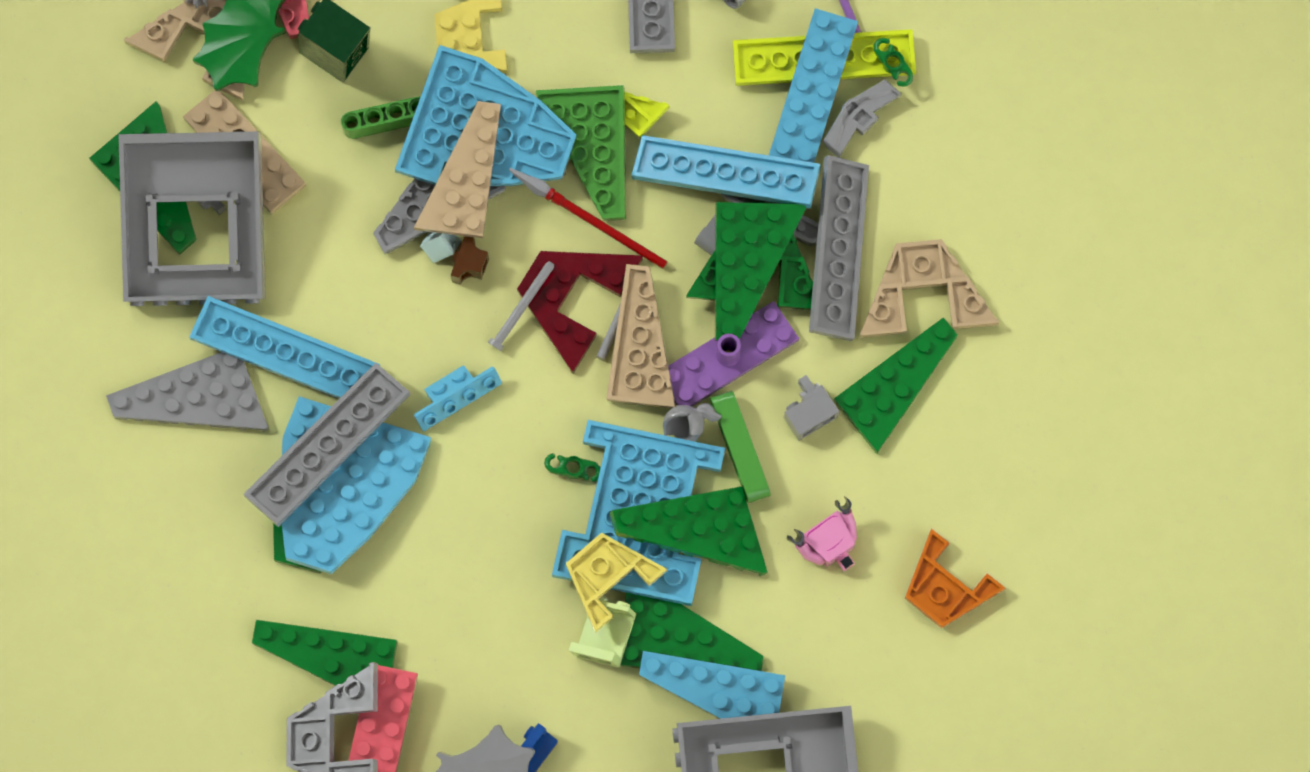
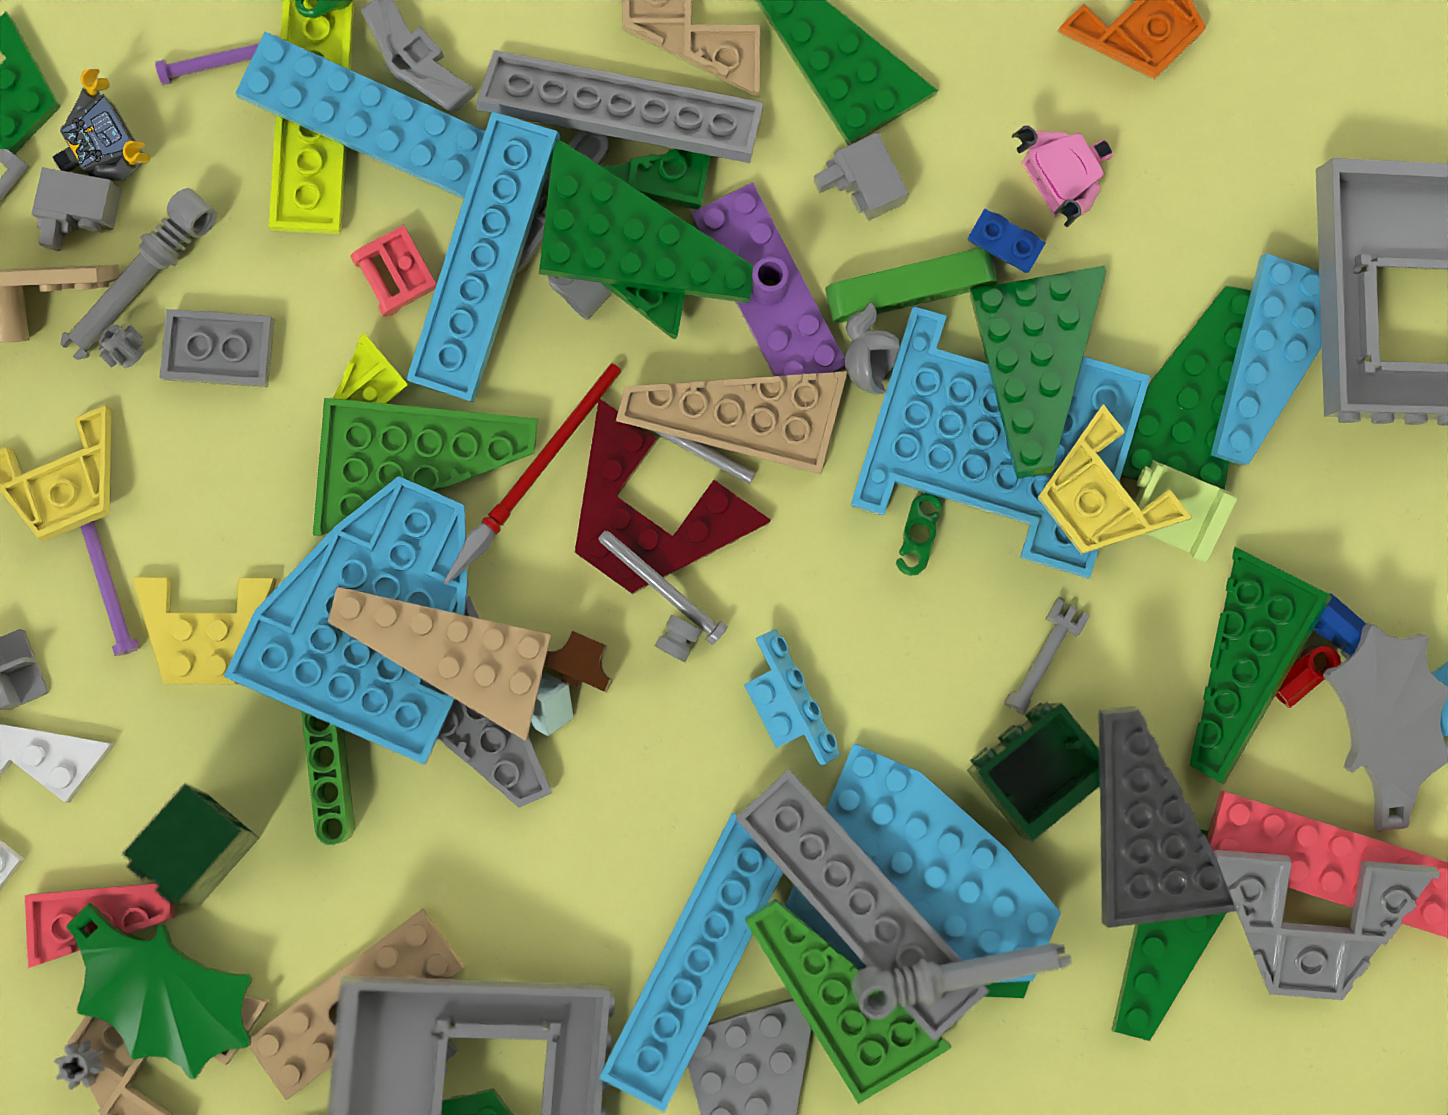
camera: 85 degrees left, 10 degrees up
(262, 441) = (819, 979): none -> bright green wing
(281, 482) = (929, 981): none -> light grey piece
(378, 620) = (1151, 846): none -> flat silver wing
(422, 551) = (1038, 769): none -> dark green container
(489, 320) = (678, 638): none -> light grey wheel
(492, 716) = (1304, 676): none -> red piece
(508, 687) = (1254, 648): none -> green wing
(521, 567) = (1063, 624): none -> light grey hinge
(717, 126) = (404, 265): none -> coral plate
(773, 501) = (1006, 241): none -> blue bracket

